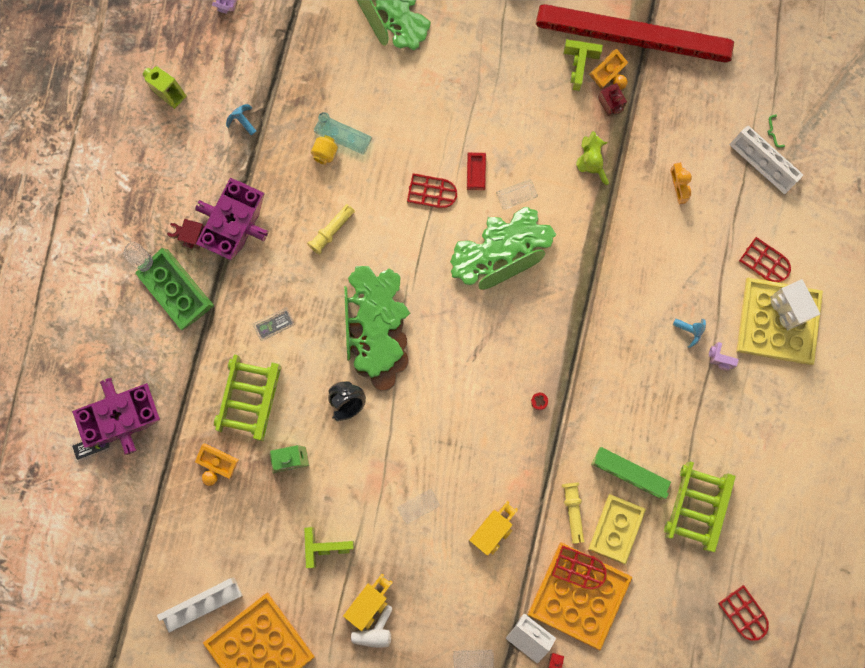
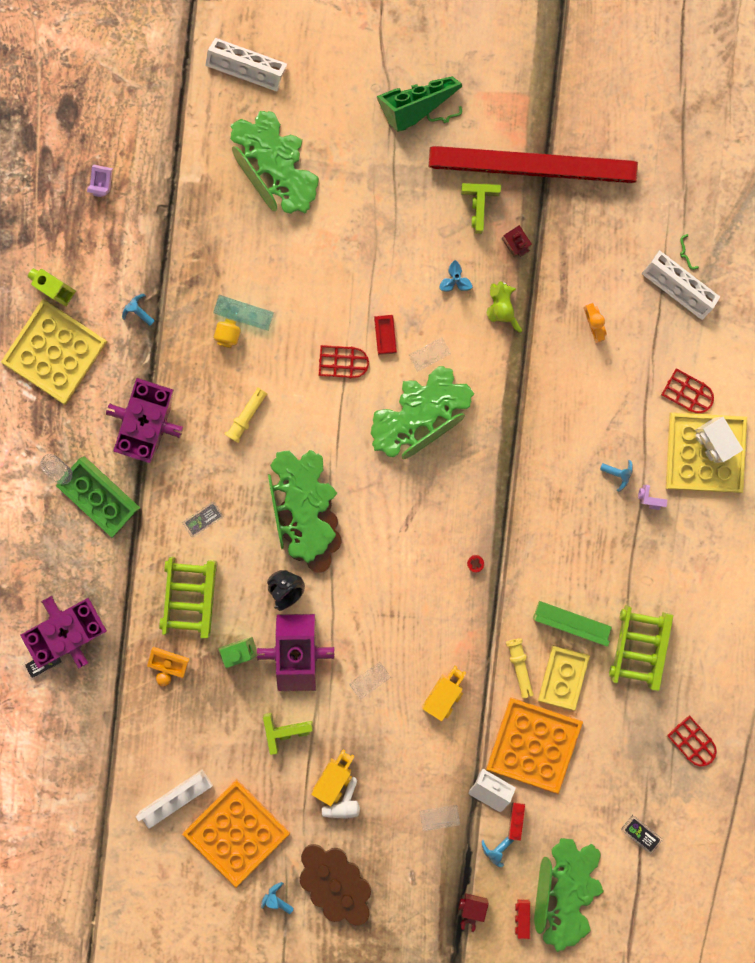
camera: 10 degrees left, 10 degrees up
(155, 148) = (54, 351): none -> light yellow tile
(187, 234) = (103, 439): dark red brick -> none
(344, 487) = (298, 633): none -> magenta slope
(550, 121) = (455, 271): none -> dark azure plant
(575, 561) = (524, 724): red window -> none
(609, 69) = (510, 208): light orange plate -> none

